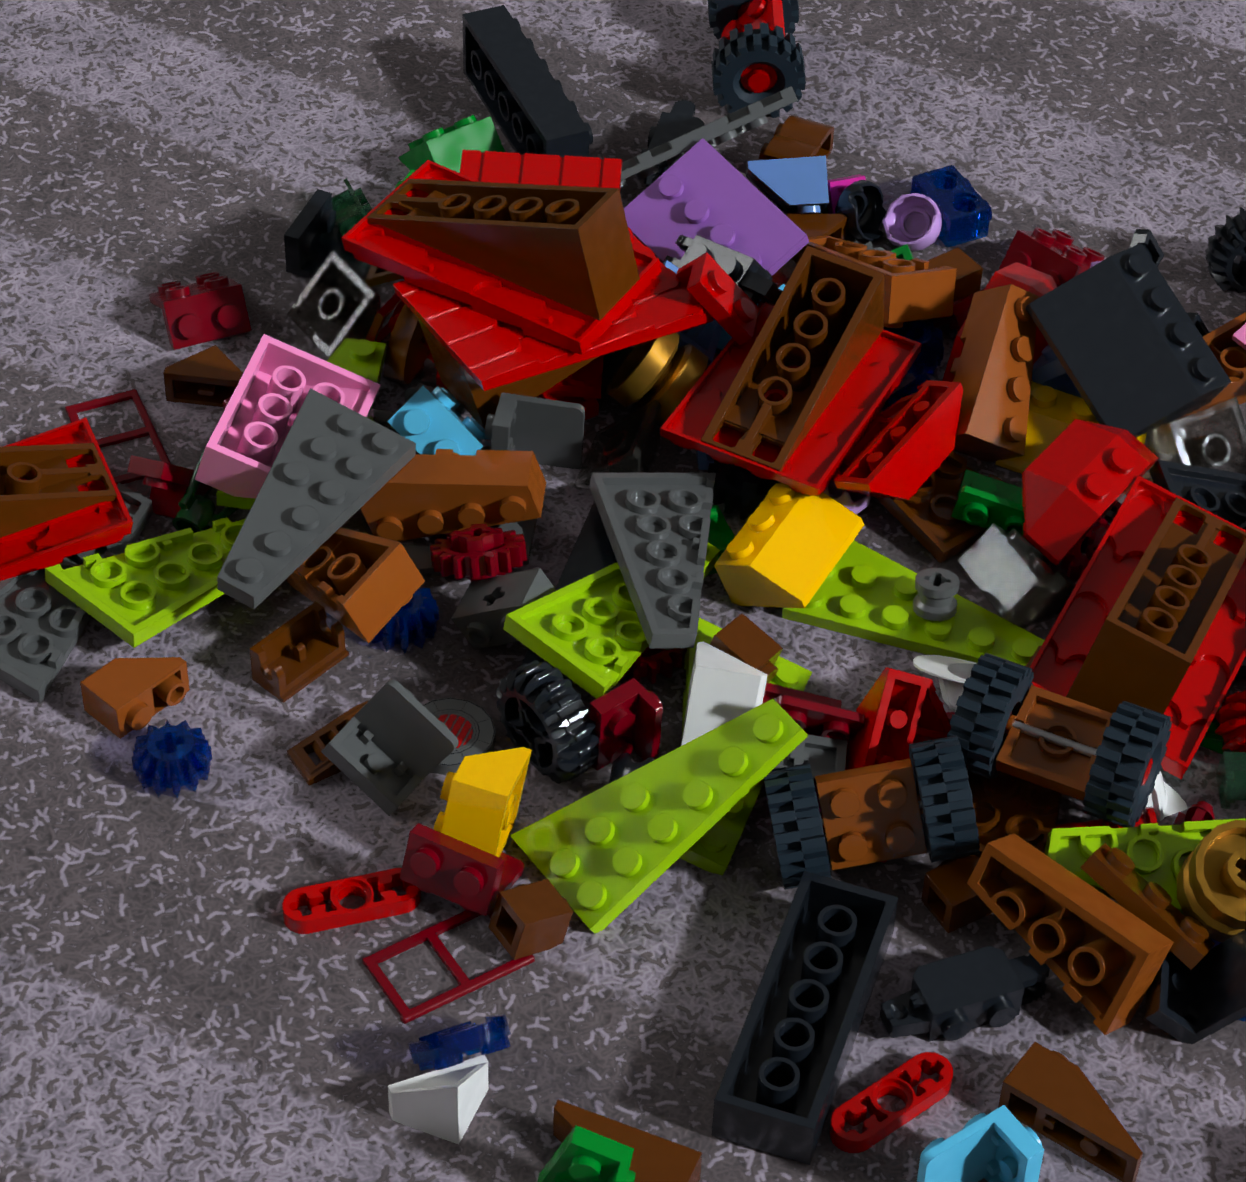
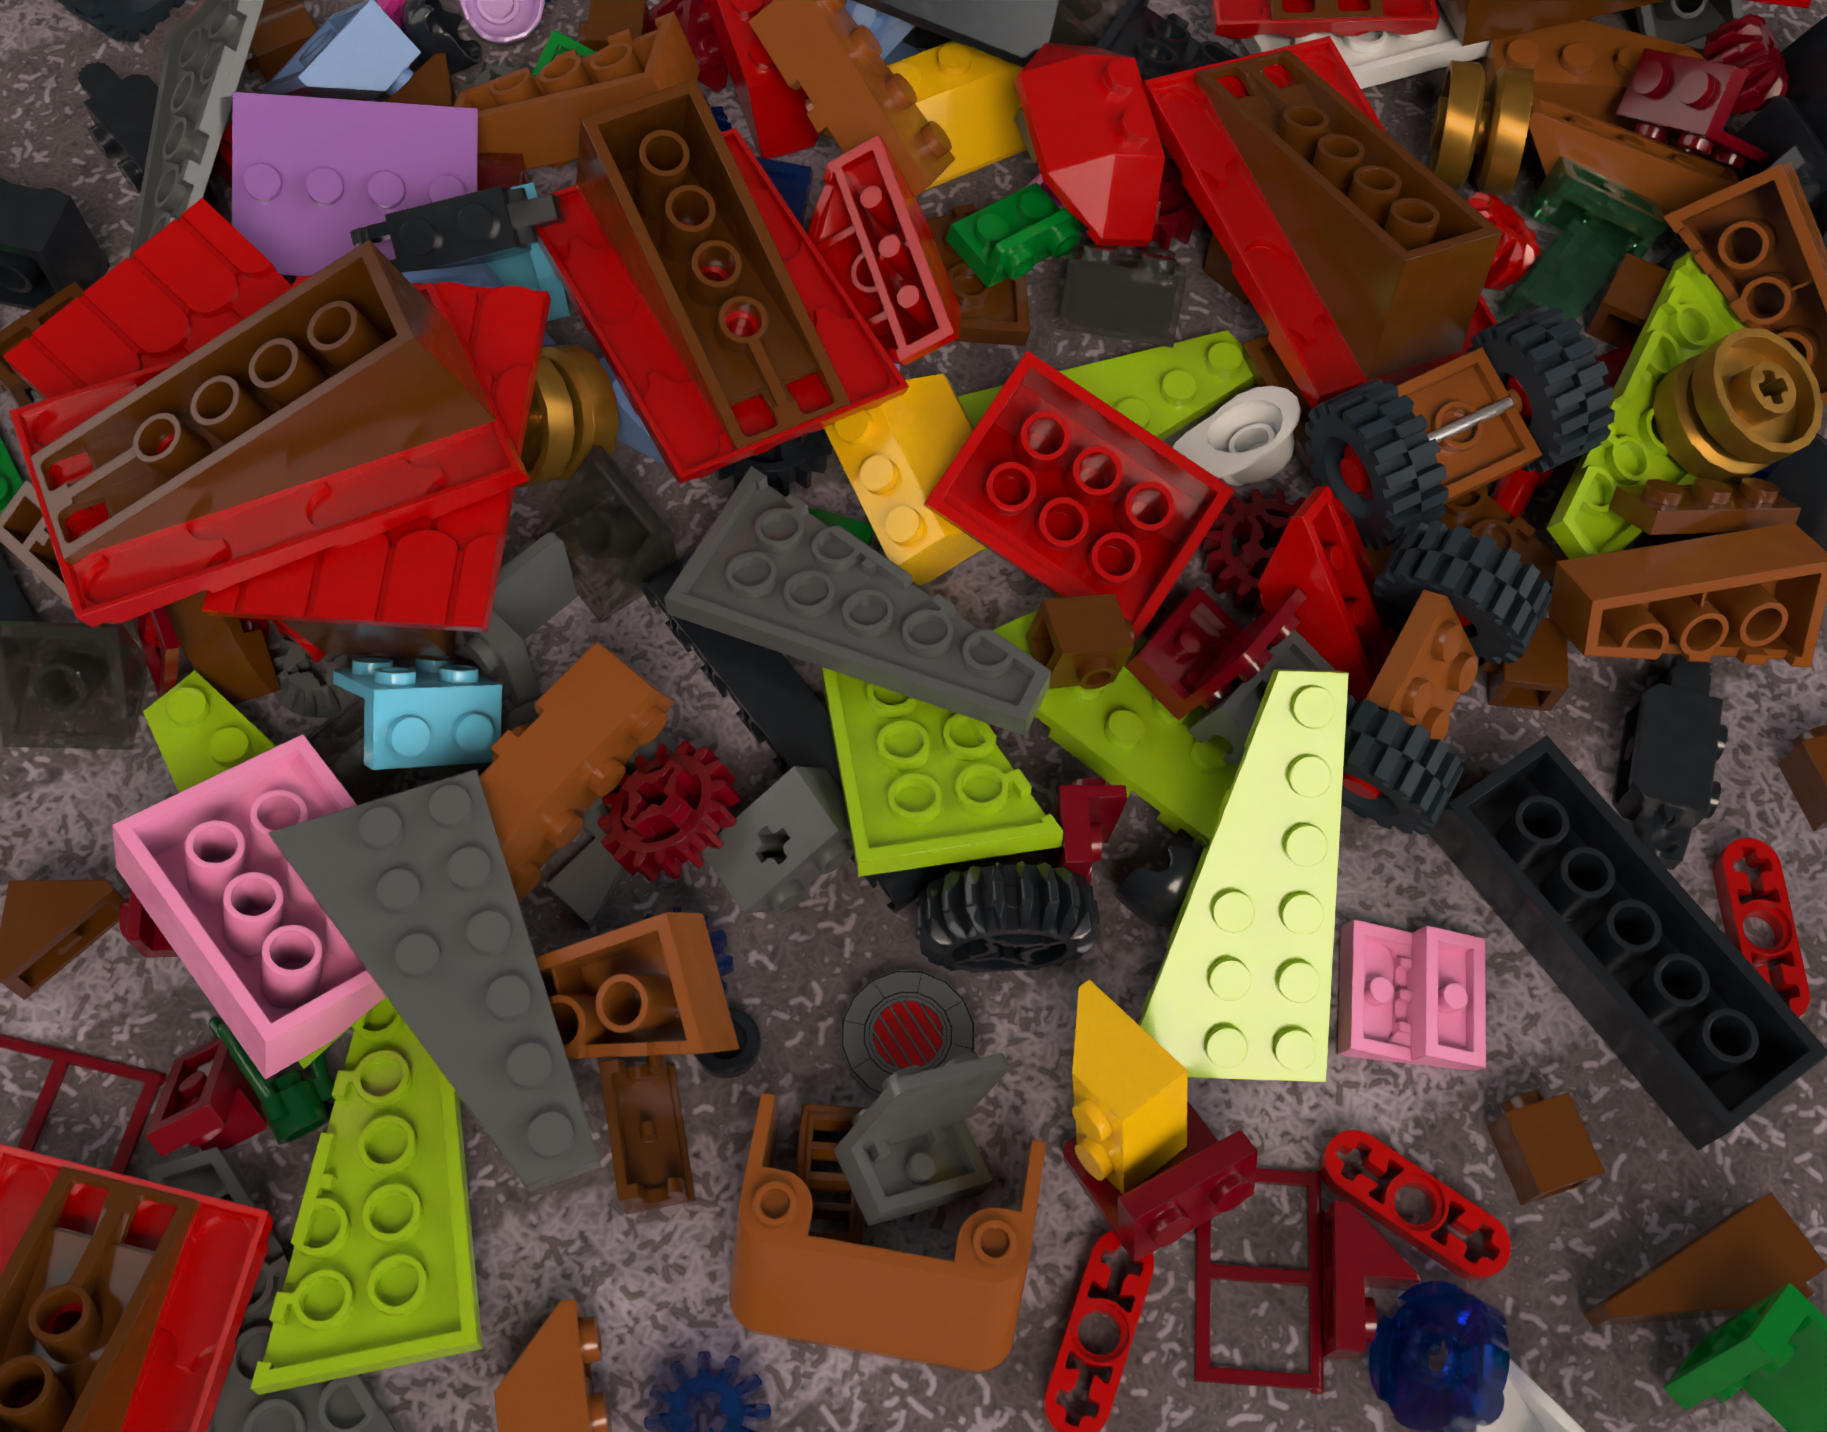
camera: 55 degrees left, 20 degrees up
(309, 817) = (871, 1296): none -> dark orange windscreen
(379, 665) = (735, 1062): none -> black tile
(481, 985) = (1351, 1261): none -> dark red slope
(530, 918) = (1290, 1140): reddish brown brick -> none
(541, 992) = (1442, 1198): none -> red beam
(637, 1045) = (1544, 1146): none -> reddish brown brick
(683, 947) = (1412, 996): none -> bright pink slope
(719, 691) = (1125, 709): white slope -> none
(720, 297) = (528, 264): red bracket -> none
(835, 608) = (1078, 494): none -> red slope
(936, 594) = (1106, 375): dark grey wheel -> none

